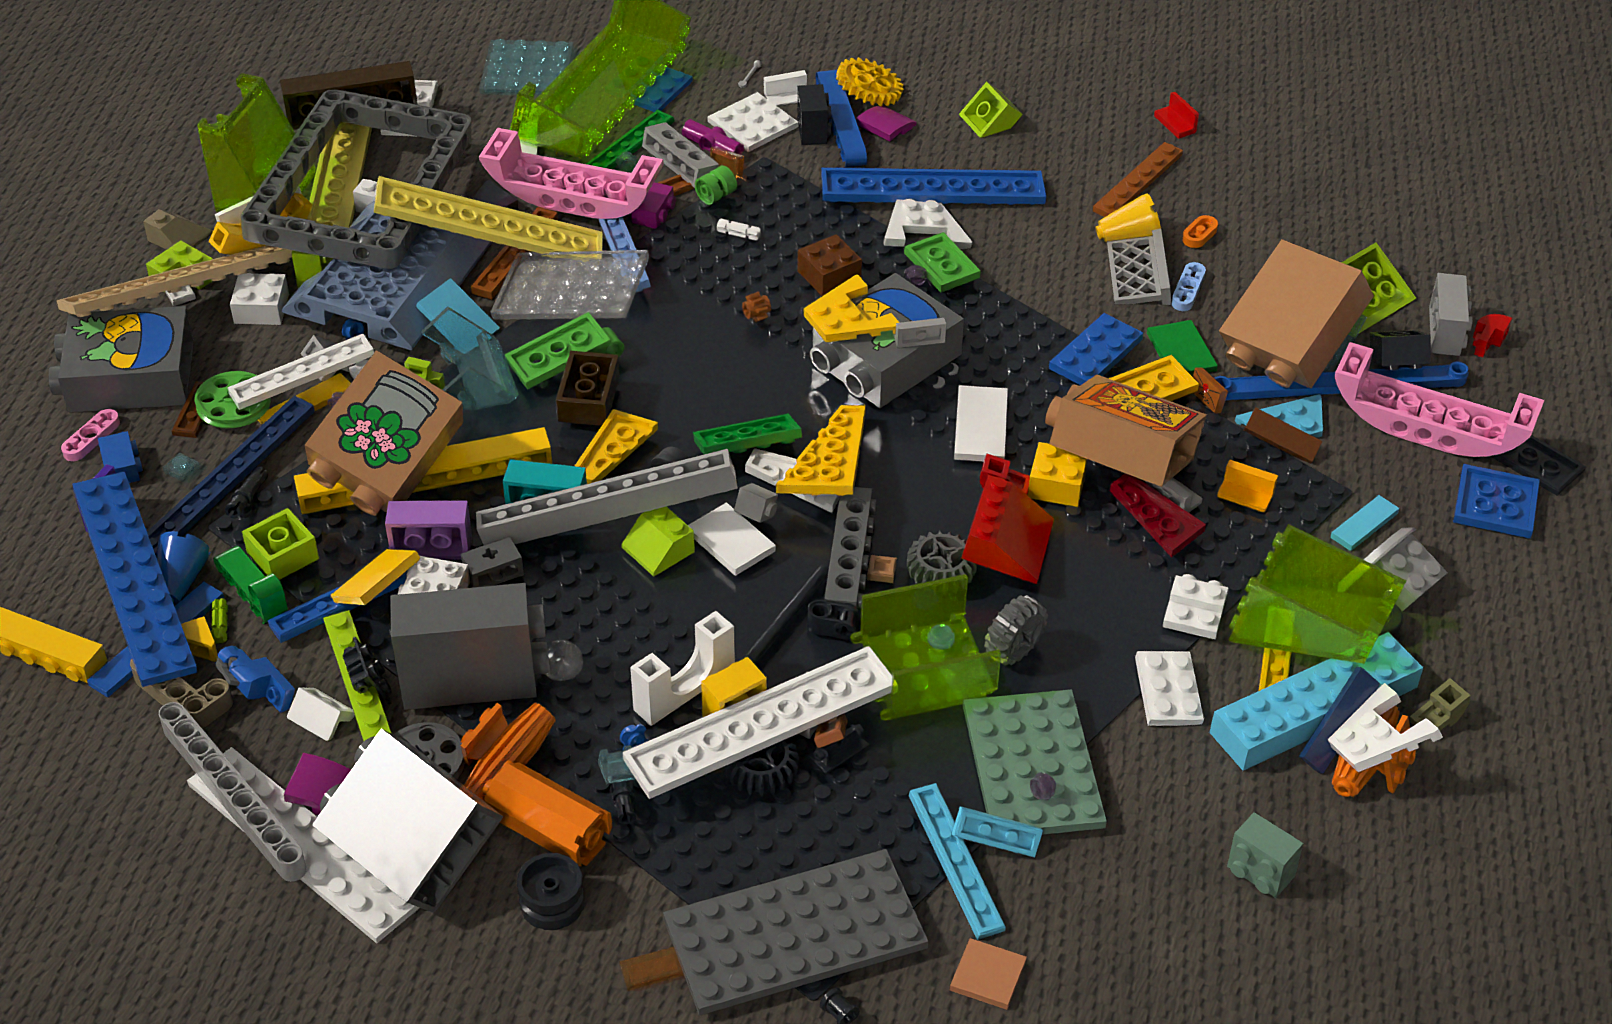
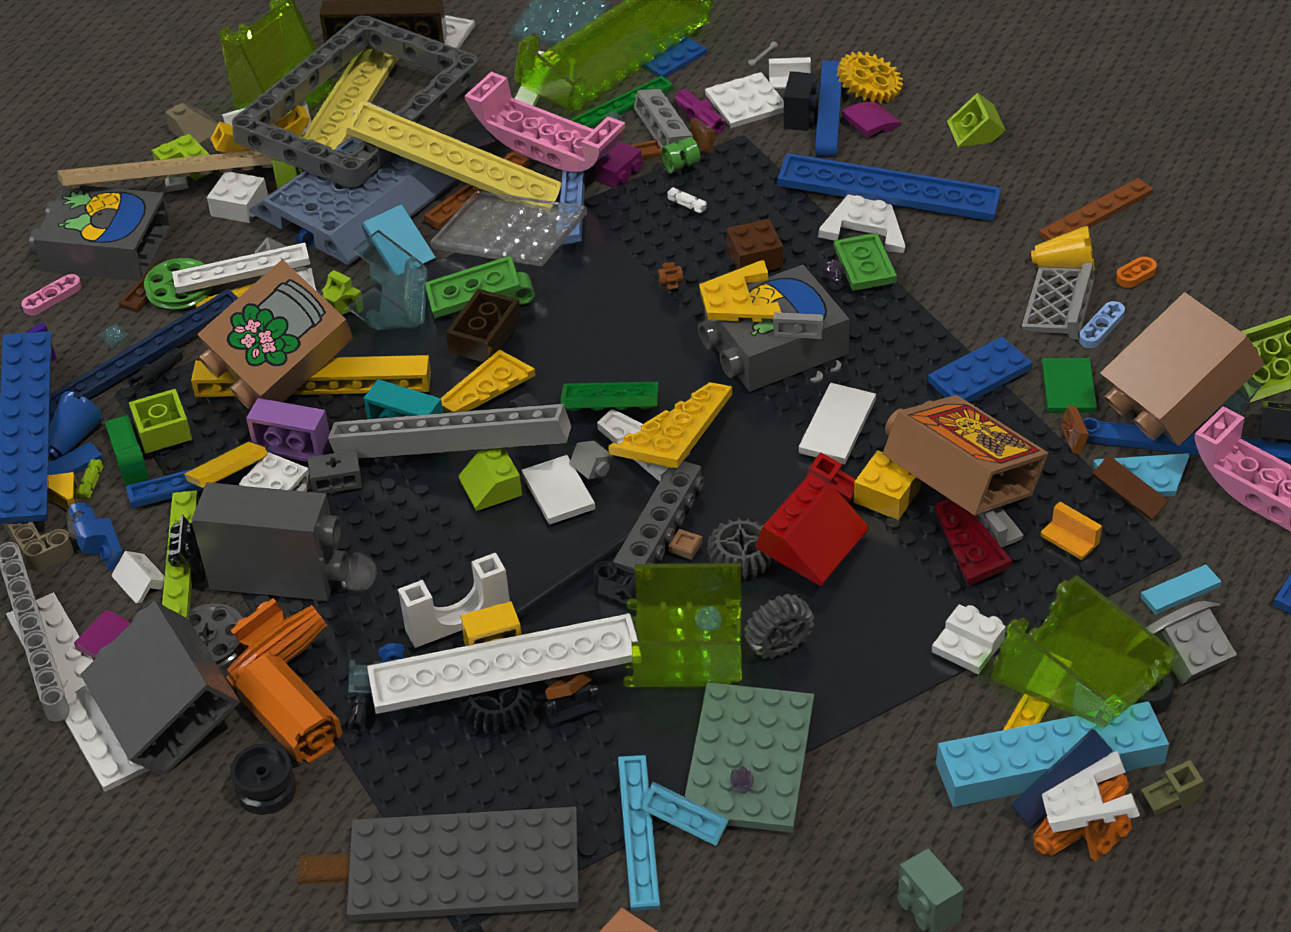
camera: 20 degrees right, 0 degrees up
(119, 452) = (65, 319): blue brick -> none
(1160, 378) = (1025, 412): yellow plate -> none
(1169, 688) = (912, 712): white plate -> none
(1178, 116) = (1162, 156): red panel -> none

